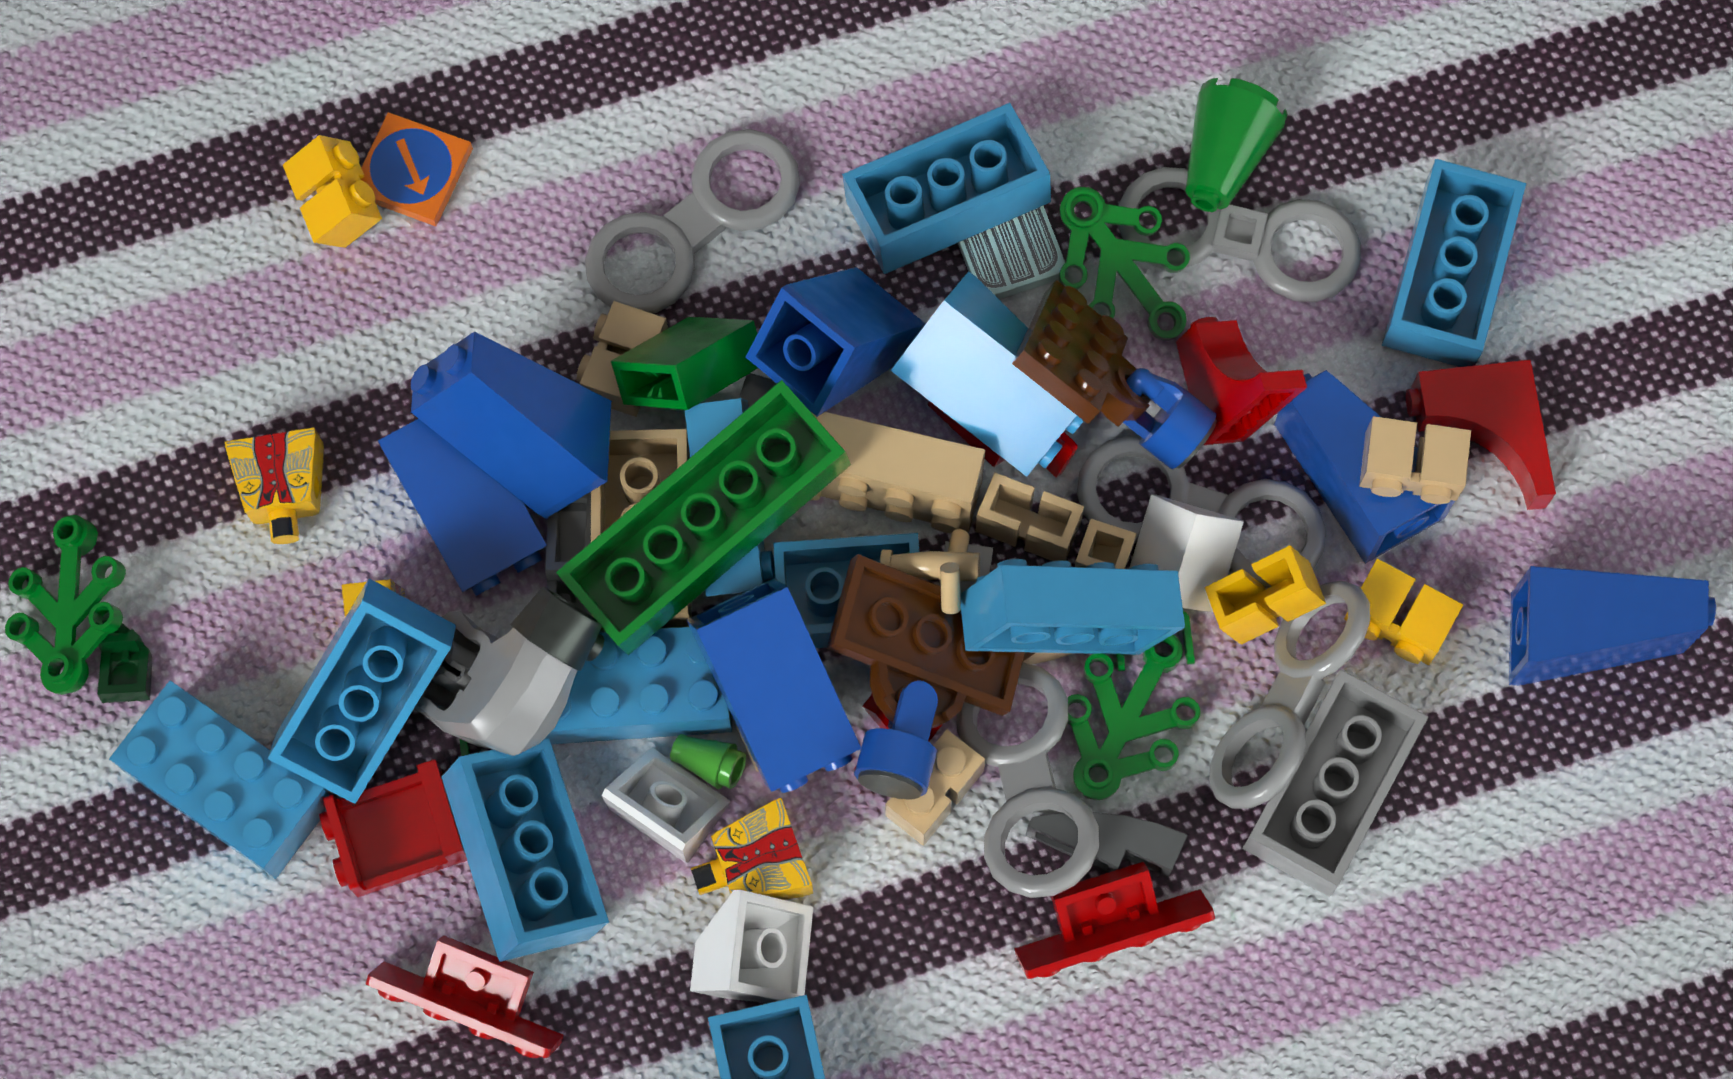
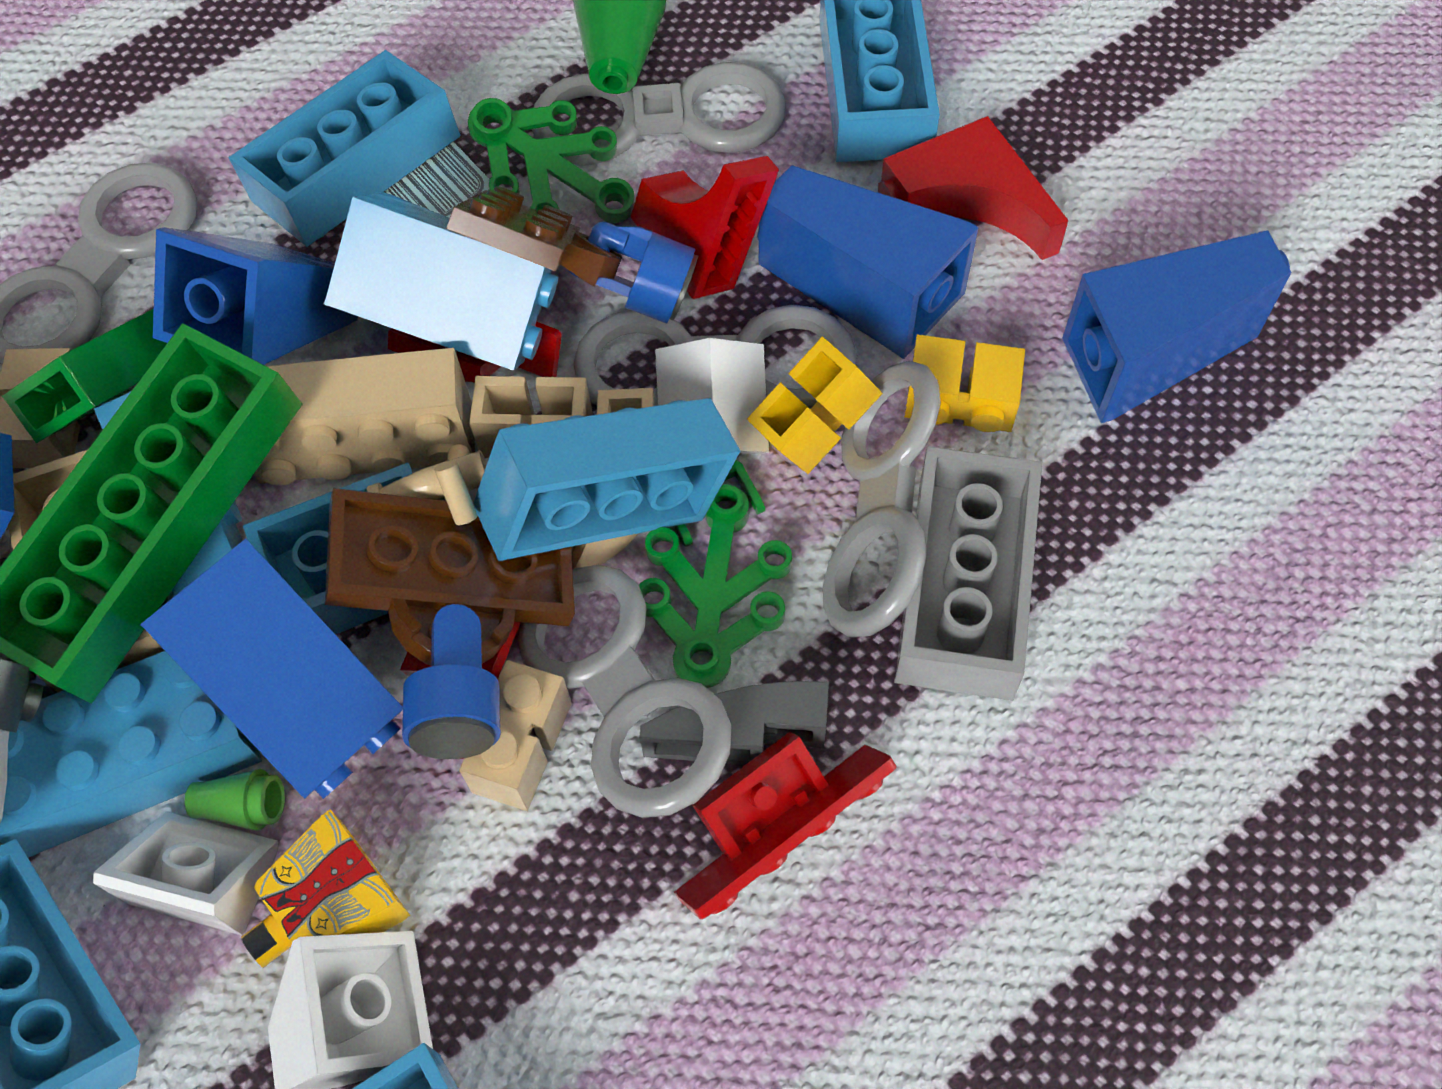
camera: 20 degrees left, 10 degrees down
(1439, 462) = (901, 216): tan piece -> none

